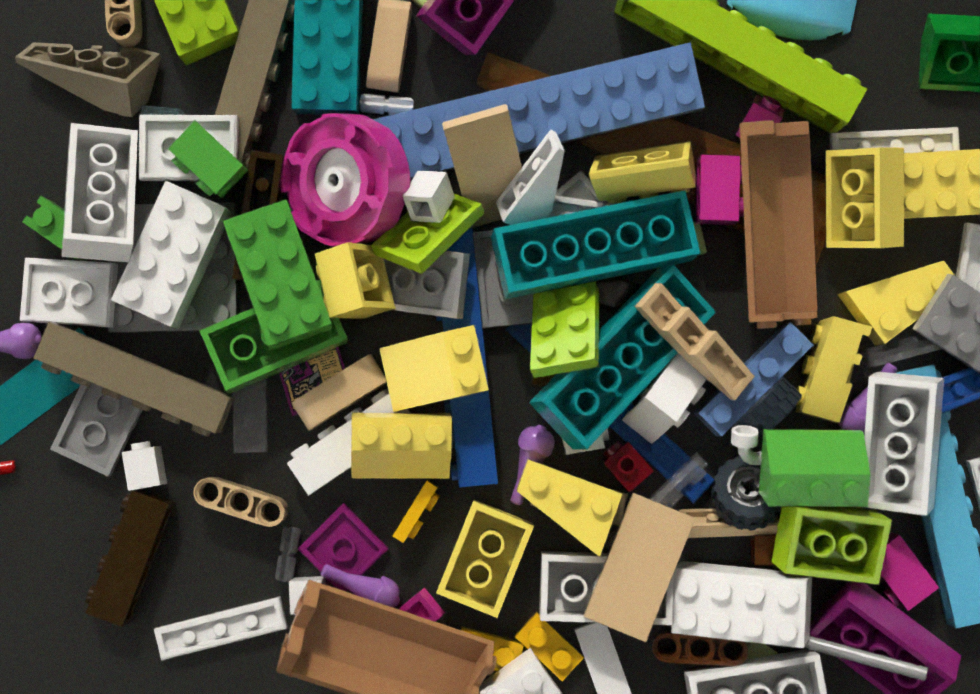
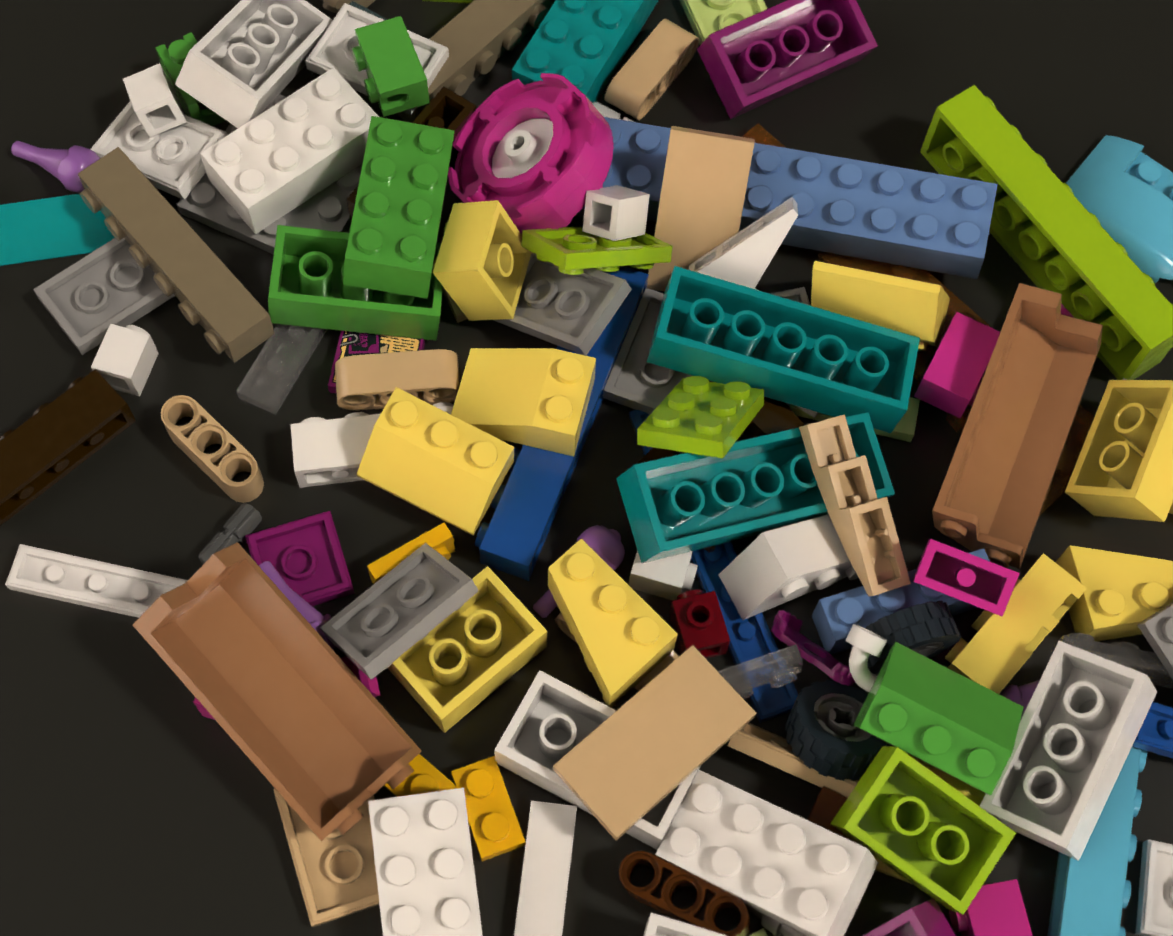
camera: 20 degrees right, 20 degrees down
(46, 265) = (154, 100): none -> white brick
(432, 562) = (399, 610): none -> light grey plate
(691, 440) = (787, 628): none -> magenta piece
(790, 362) = (966, 577): none -> dark pink brick

